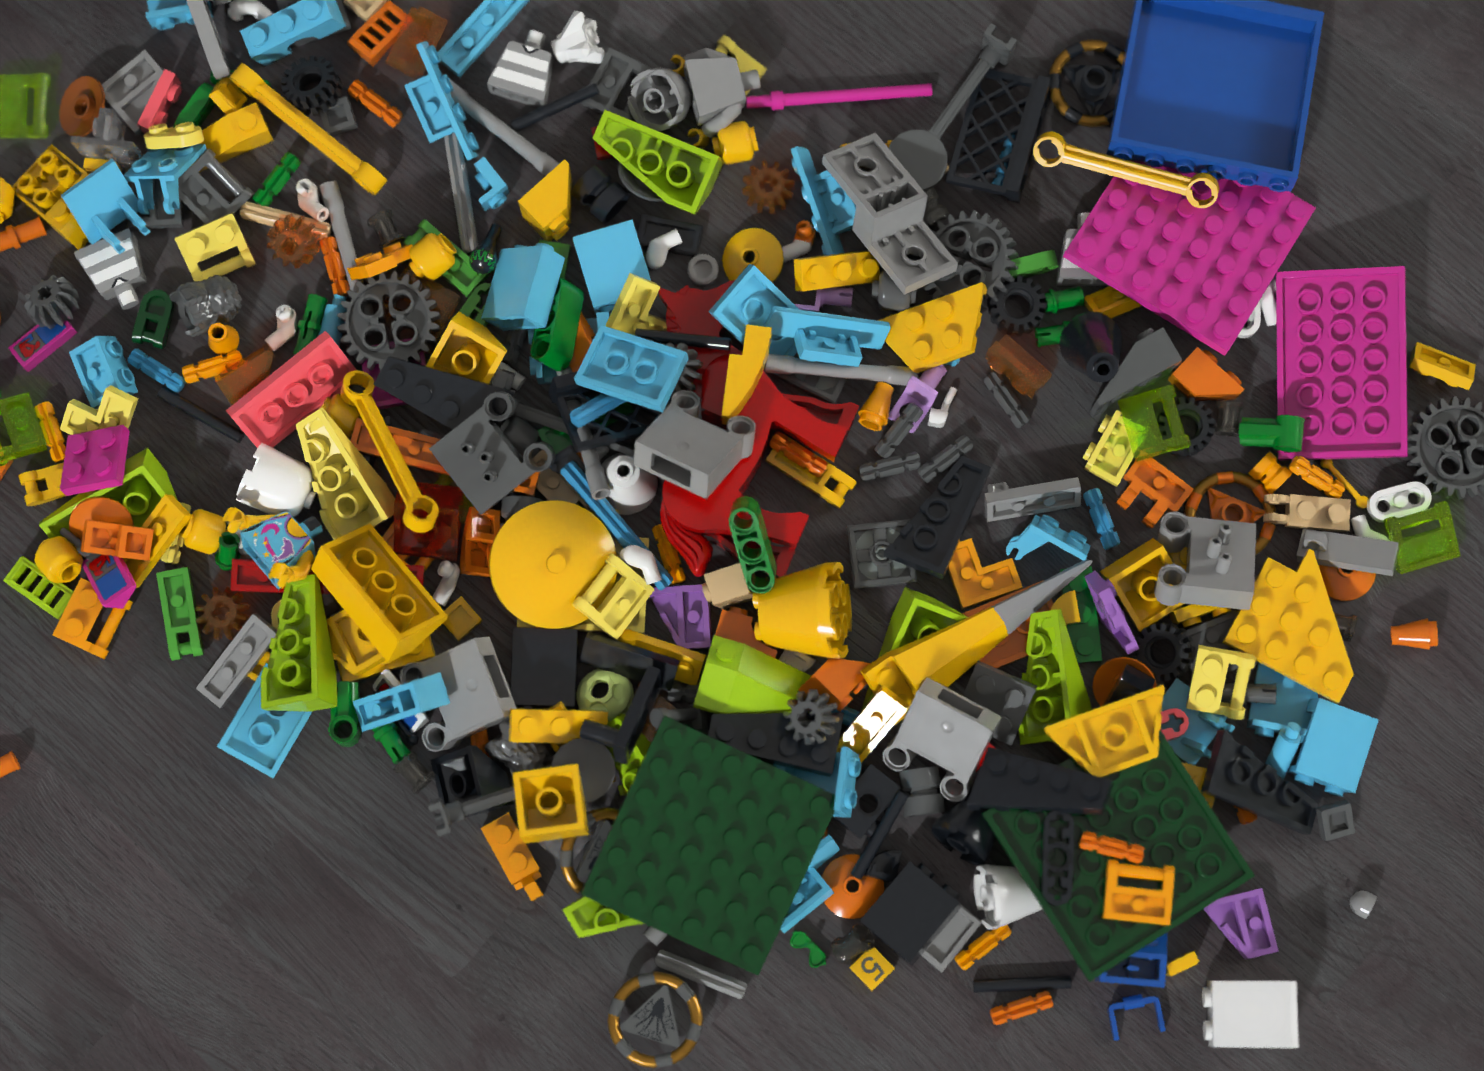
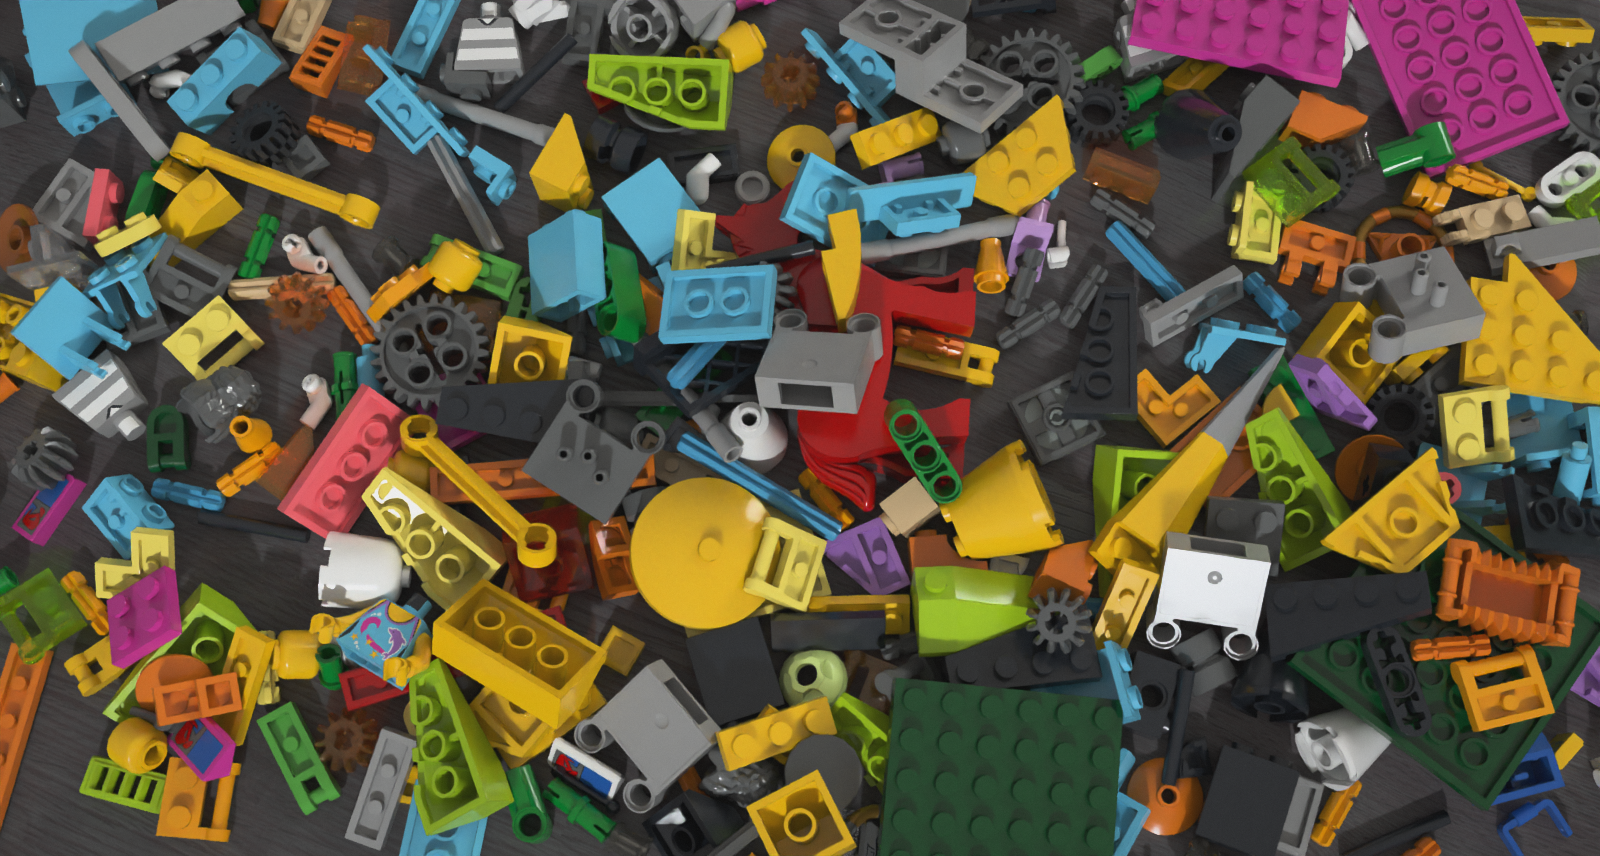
camera: 20 degrees left, 5 degrees down
(401, 702) = (587, 769): medium azure slope -> none
(448, 583) = (593, 619): white arm -> none
(484, 256) = (512, 249): black piece -> none
(494, 98) = (467, 85): none -> dark grey bracket
(625, 739) = (859, 720): black piece -> none
(642, 559) = (803, 512): white arm -> none
(1008, 446) = (1143, 261): none -> dark azure axle
(1171, 823) = (1507, 596): none -> orange piece

